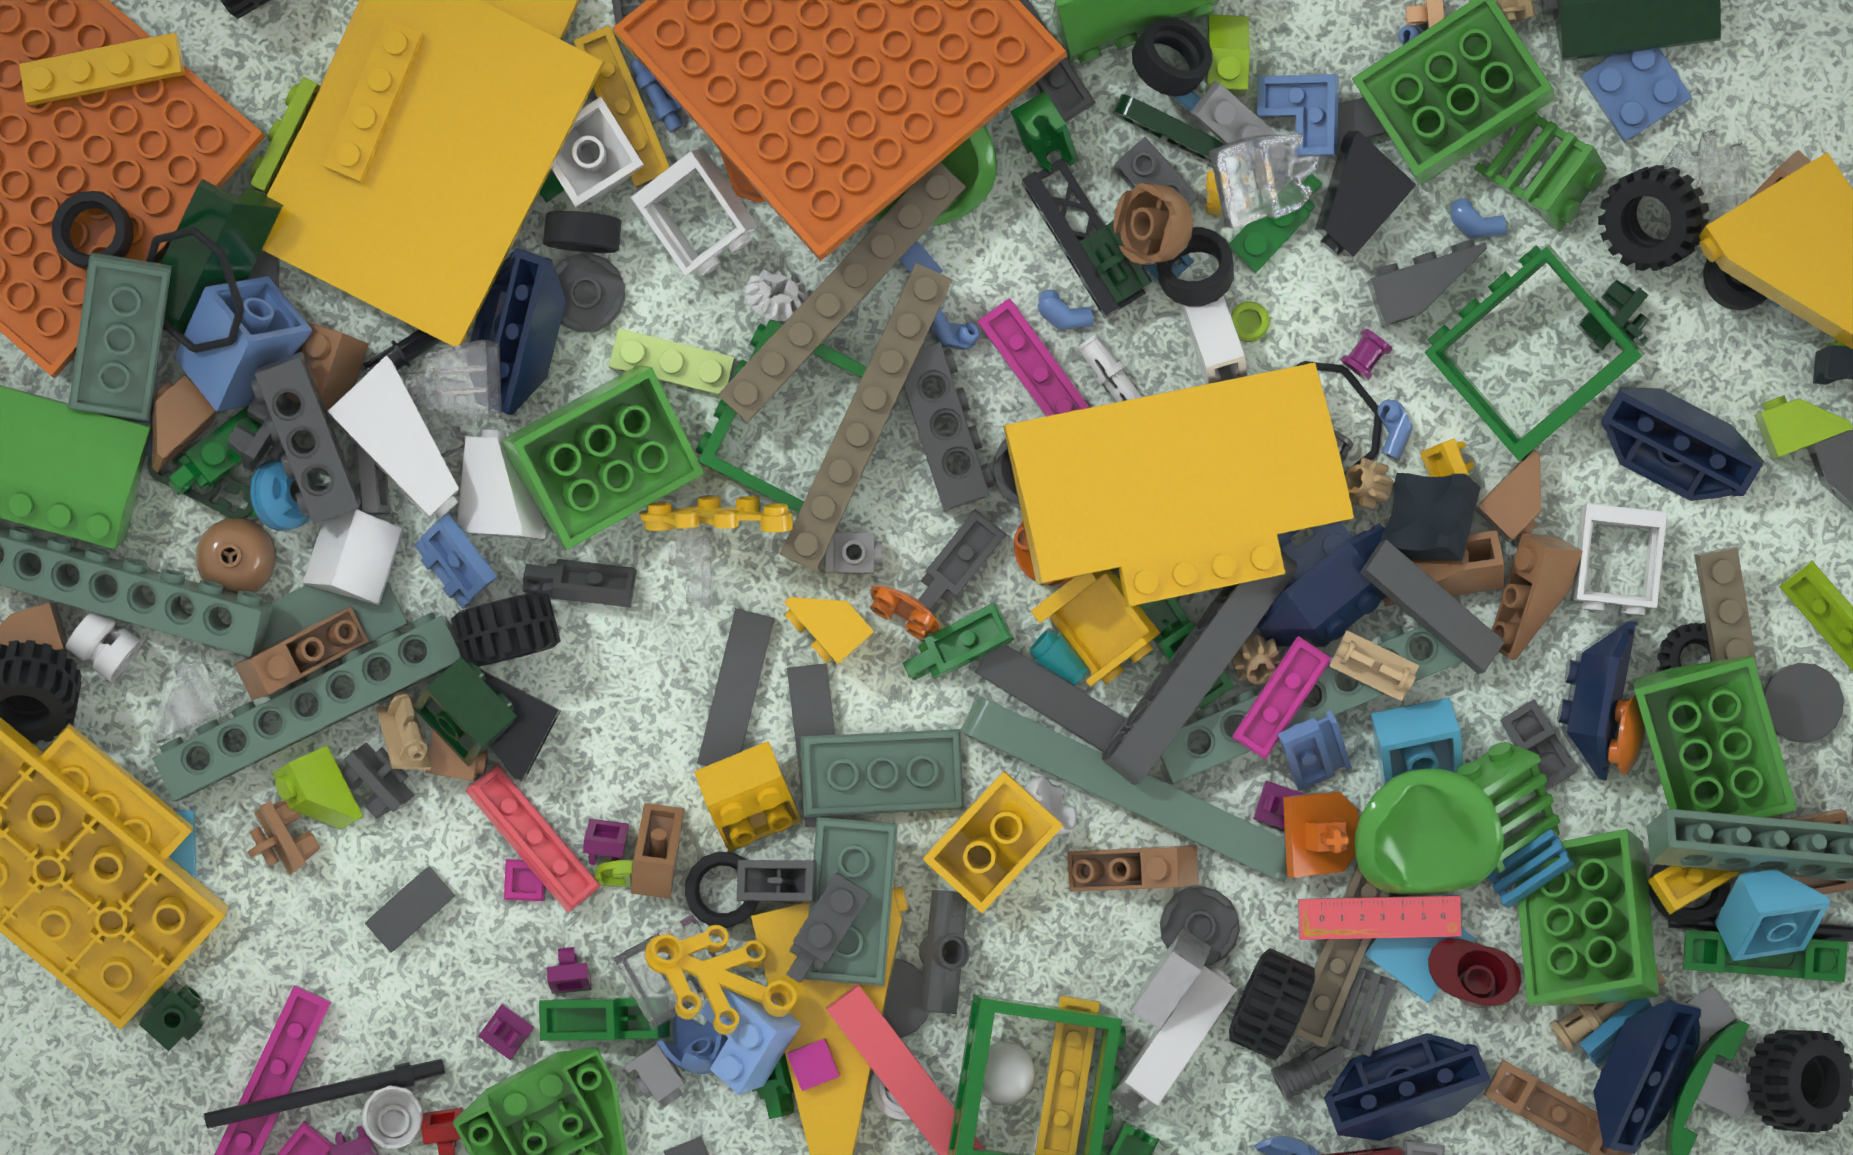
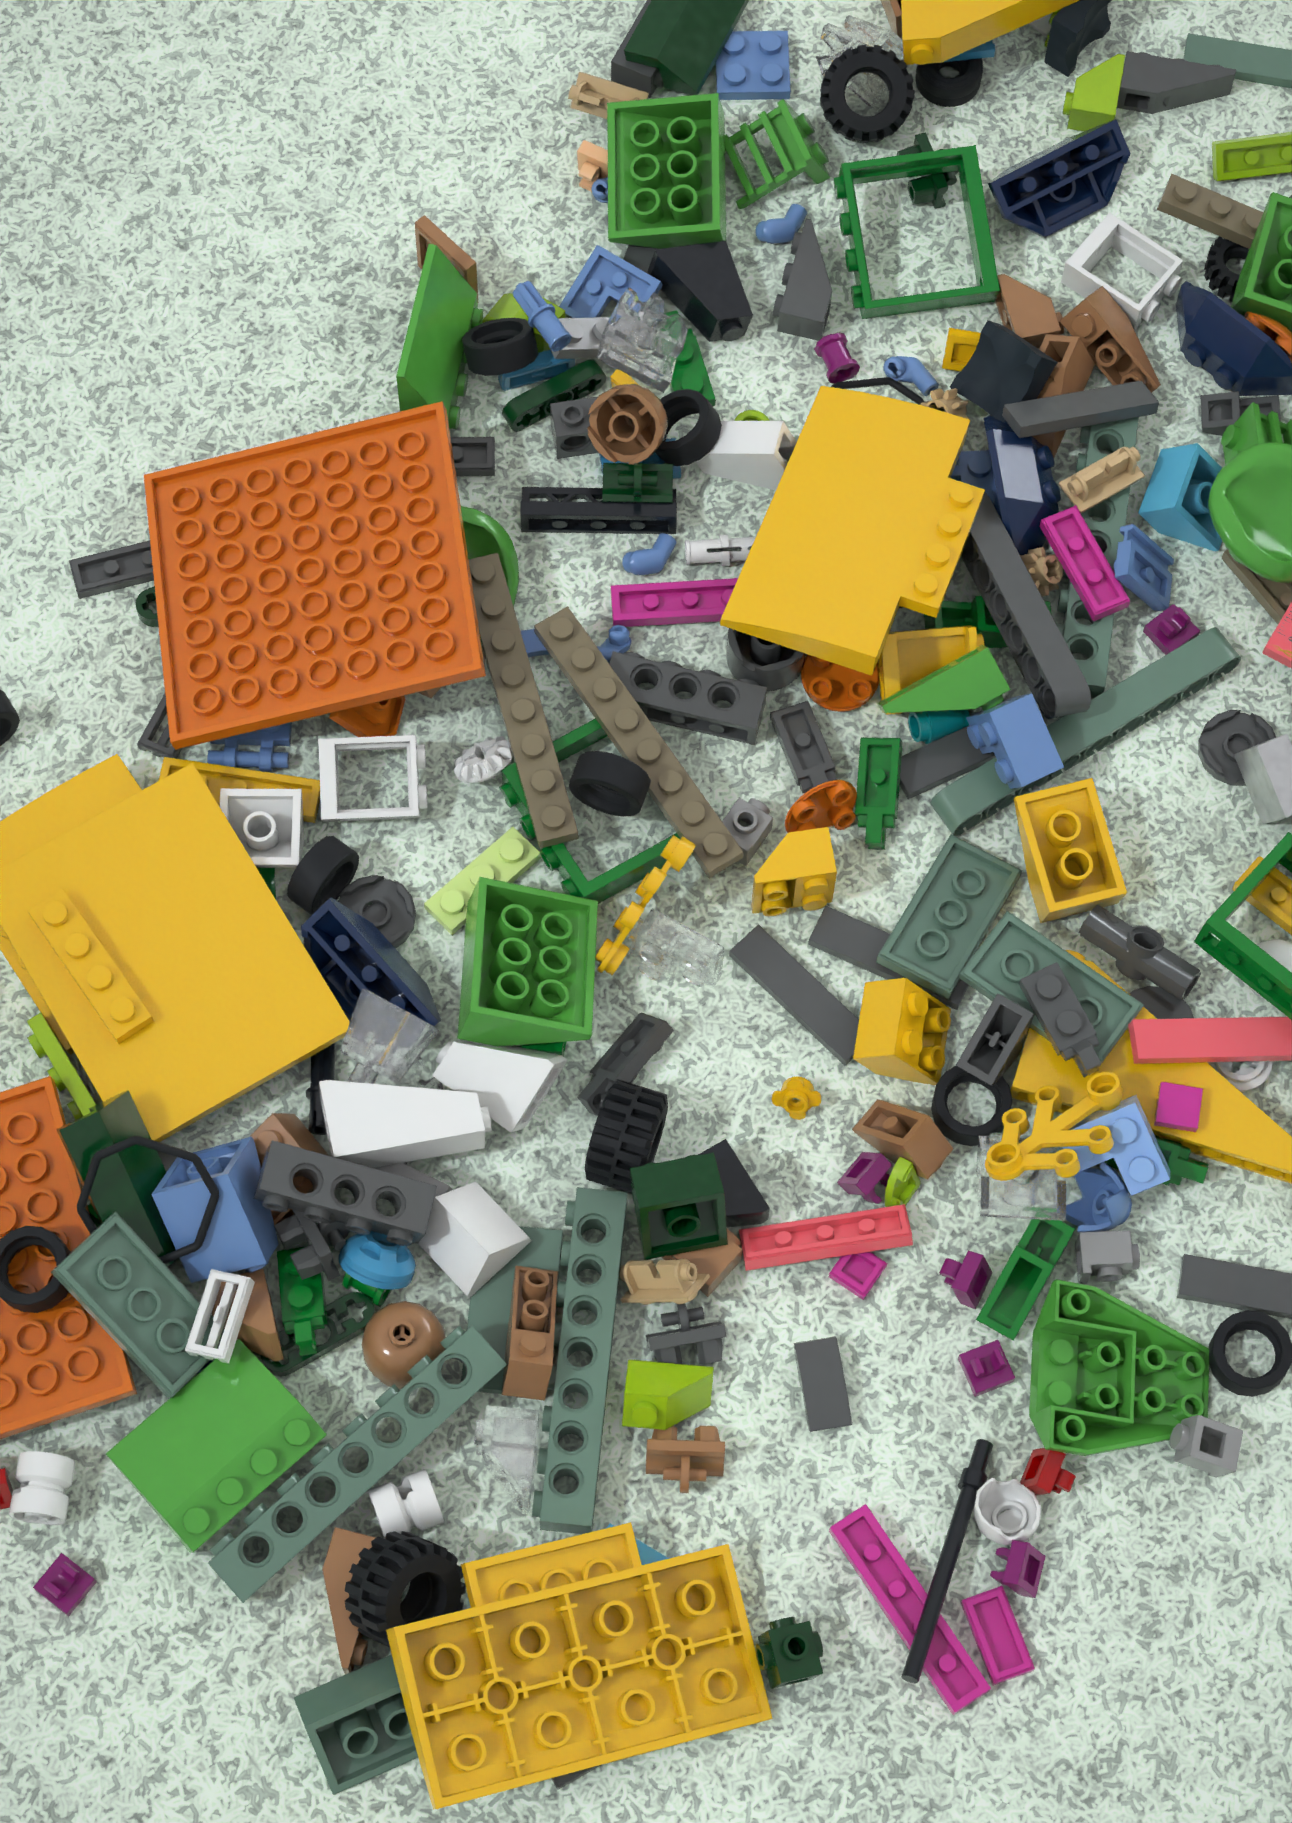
camera: 60 degrees left, 20 degrees down
(151, 419) = (234, 1321): none -> white tile
(455, 561) = (536, 1142): medium blue plate -> none
(639, 742) = (796, 1088): none -> yellow plate
(800, 423) = (609, 783): none -> black tyre
(1043, 131) = (494, 472): green hinge -> none
(1068, 731) = (1018, 740): none -> medium blue brick
(1079, 657) = (960, 685): none -> bright green slope
(1133, 868) = (1156, 768): medium nougat slope -> none
(1213, 78) = (541, 316): none -> medium blue axle
(1319, 833) = (1218, 602): orange piece -> none

